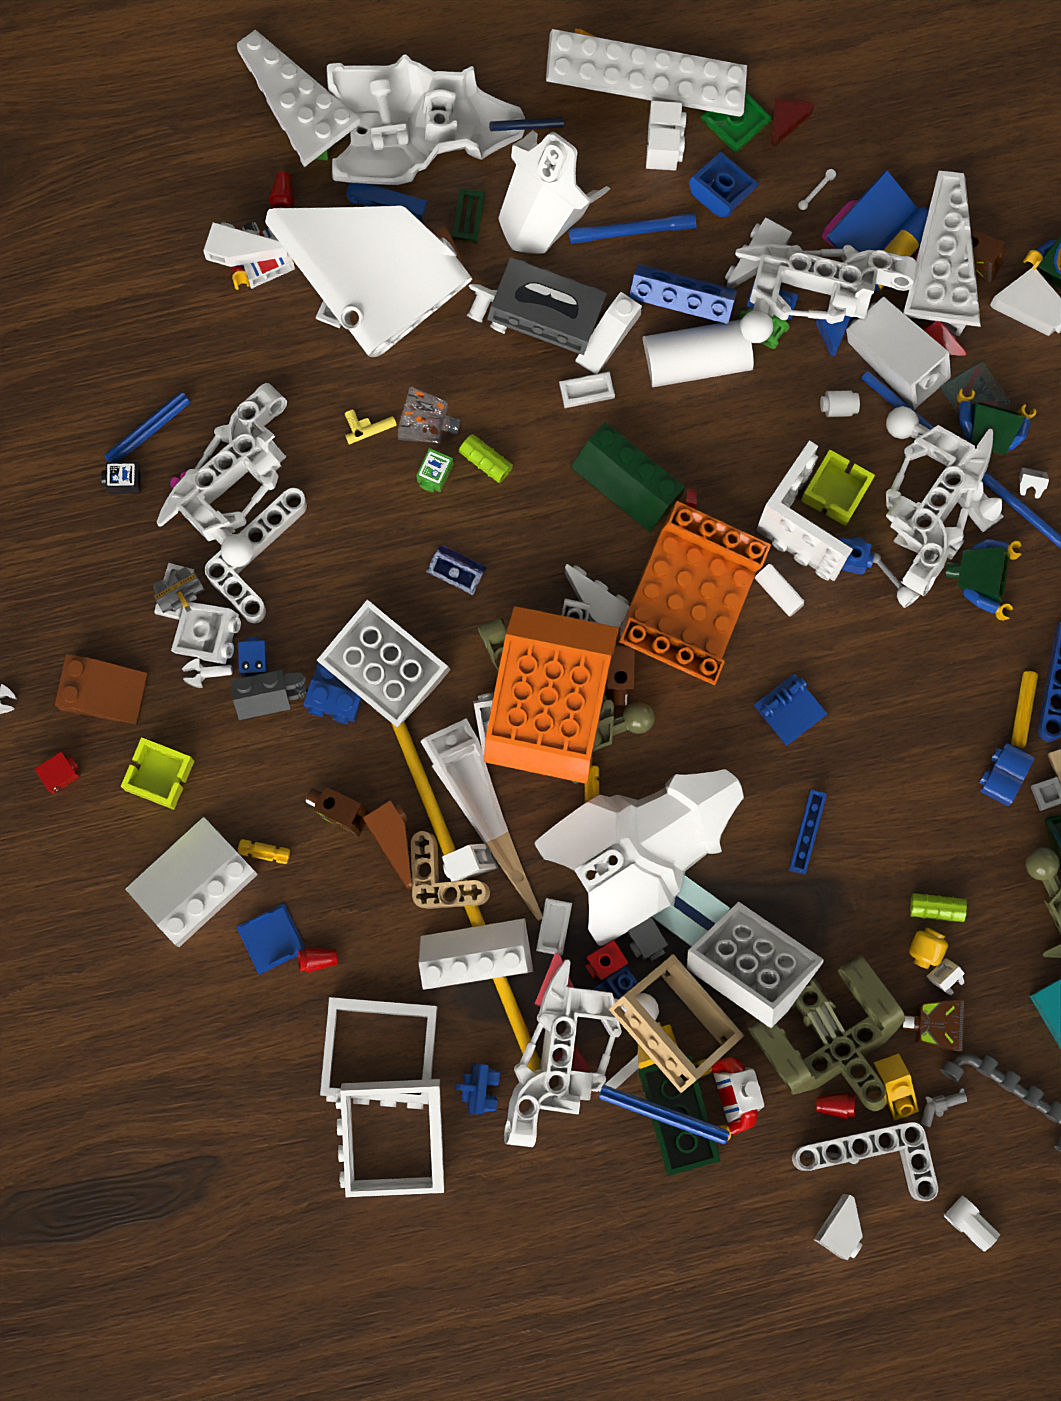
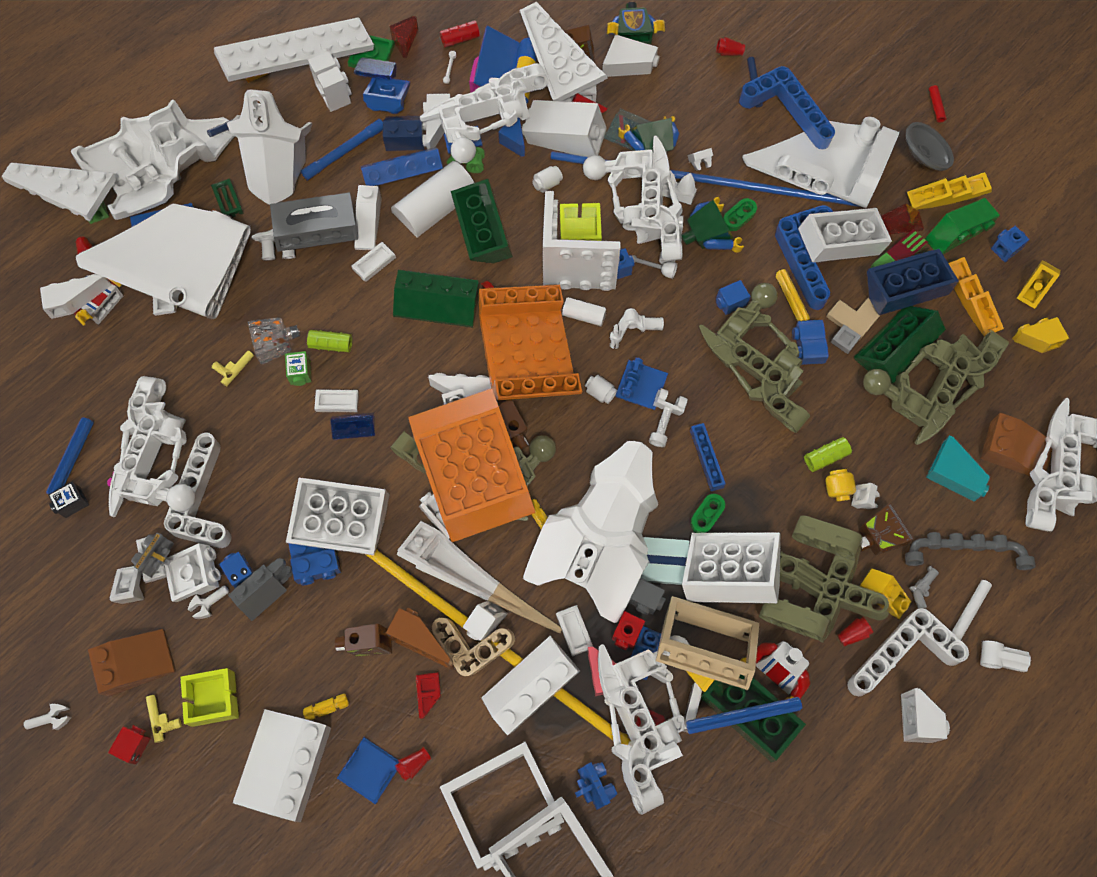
camera: 30 degrees left, 10 degrees down
(97, 765) = (160, 720): none -> light yellow hose
(136, 606) = (126, 586): none -> white slope
(372, 898) = (427, 692): none -> red tile
(455, 531) = (336, 400): none -> white tile
(713, 246) = (403, 133): none -> dark blue slope
(727, 146) = (375, 68): none -> clear blue slope
(731, 417) = (481, 223): none -> dark green slope
(742, 688) = (600, 389): none -> white brick
(767, 892) = (706, 514): none -> green plate
(770, 779) = (659, 439): none -> white bar
(828, 631) = (632, 320): none -> white pin
(853, 154) = (459, 34): none -> red axle
(914, 721) = (786, 364): none -> olive piece
(954, 671) = (732, 297): none -> blue brick
(974, 1158) = (971, 608): none -> white piece
(1029, 577) = (738, 216): none -> green plate

